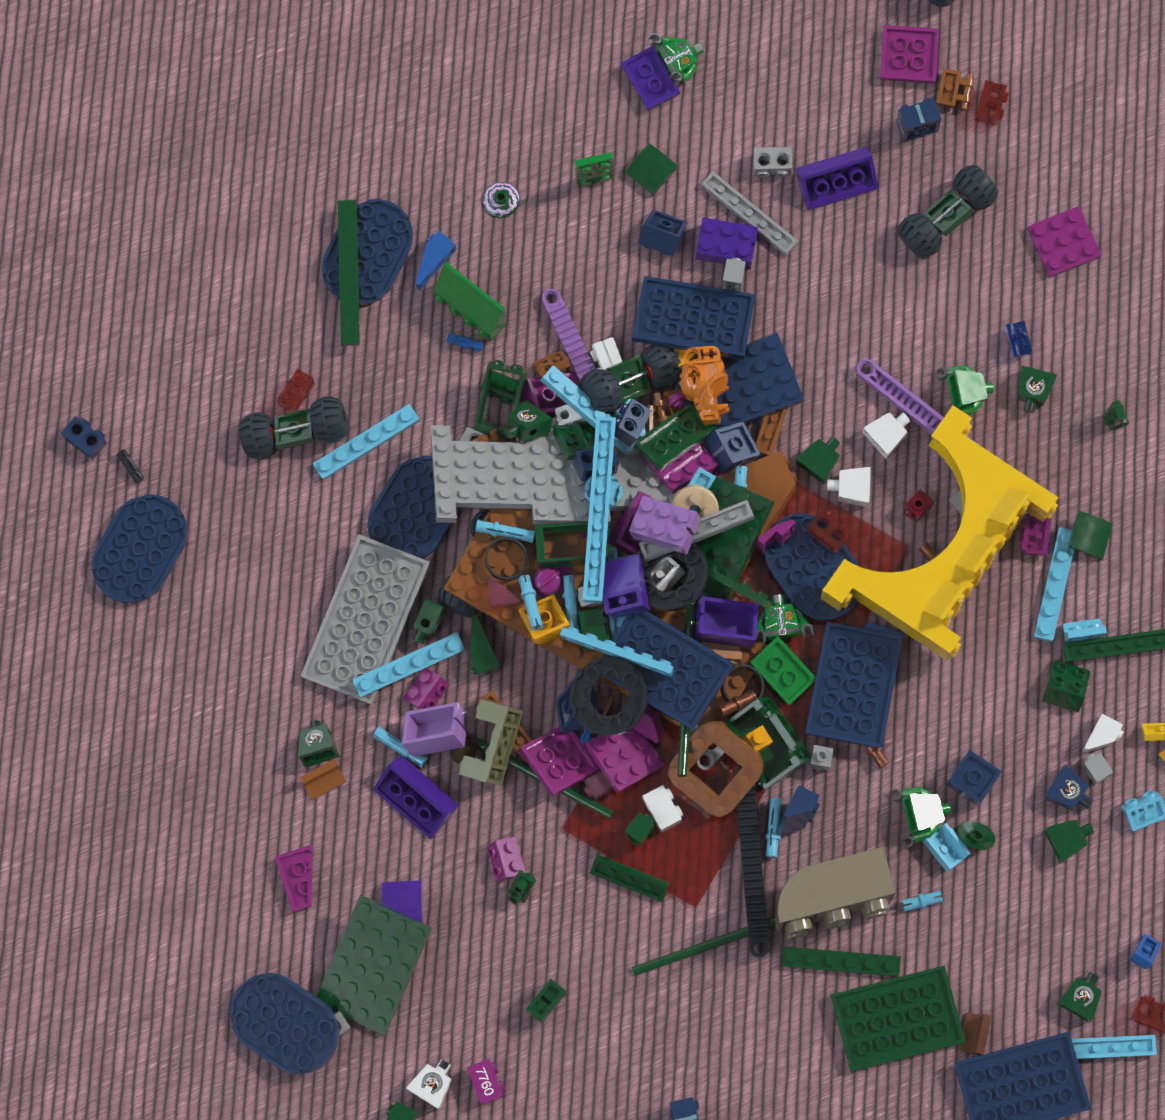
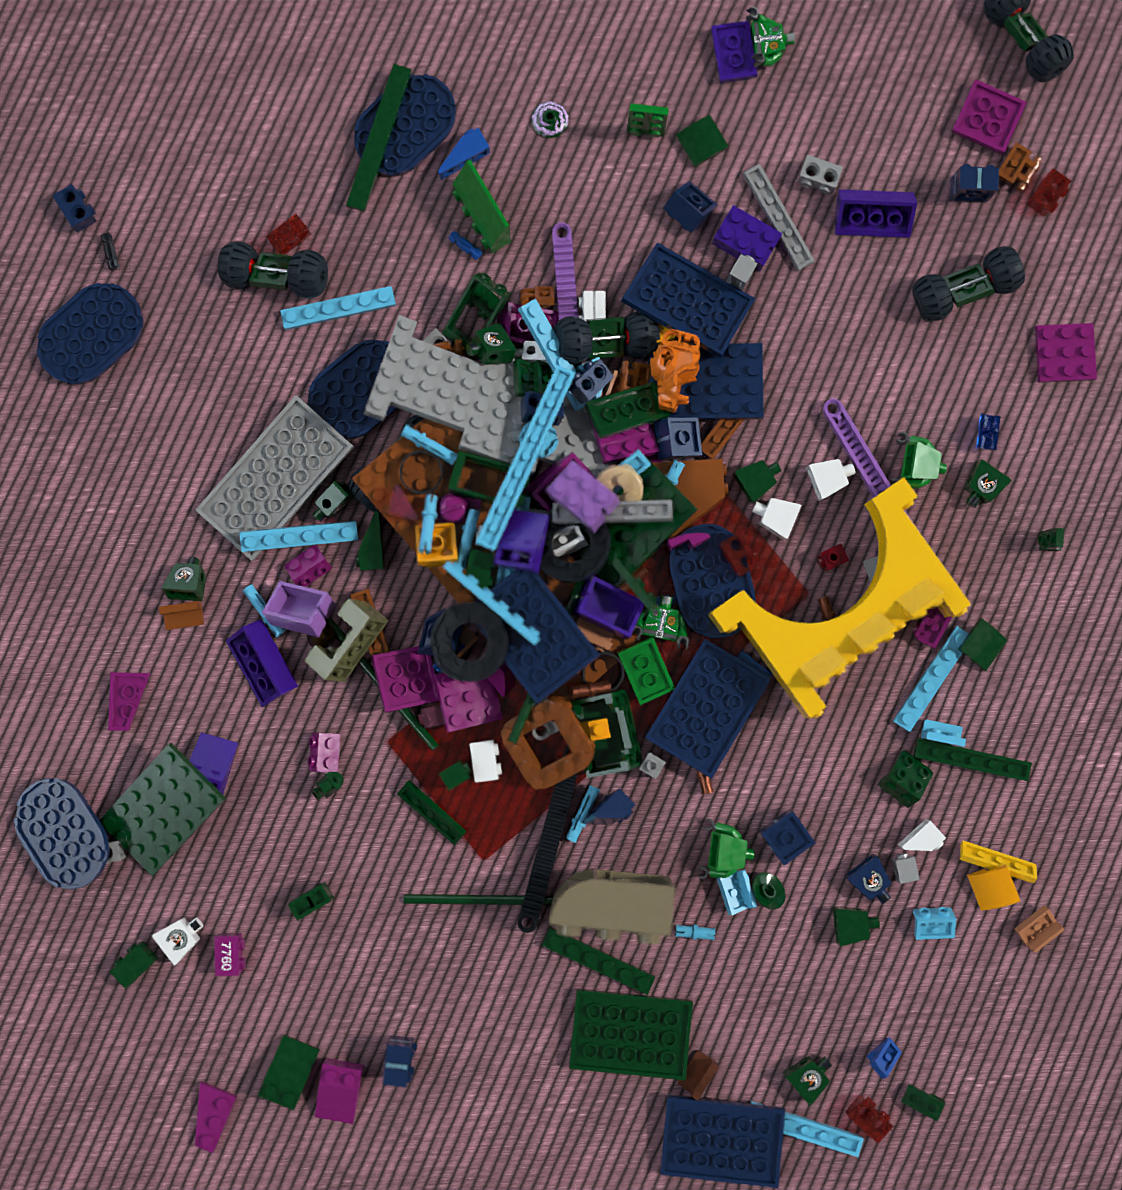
camera: 10 degrees right, 10 degrees up
(677, 400) = (642, 375): magenta plate -> none

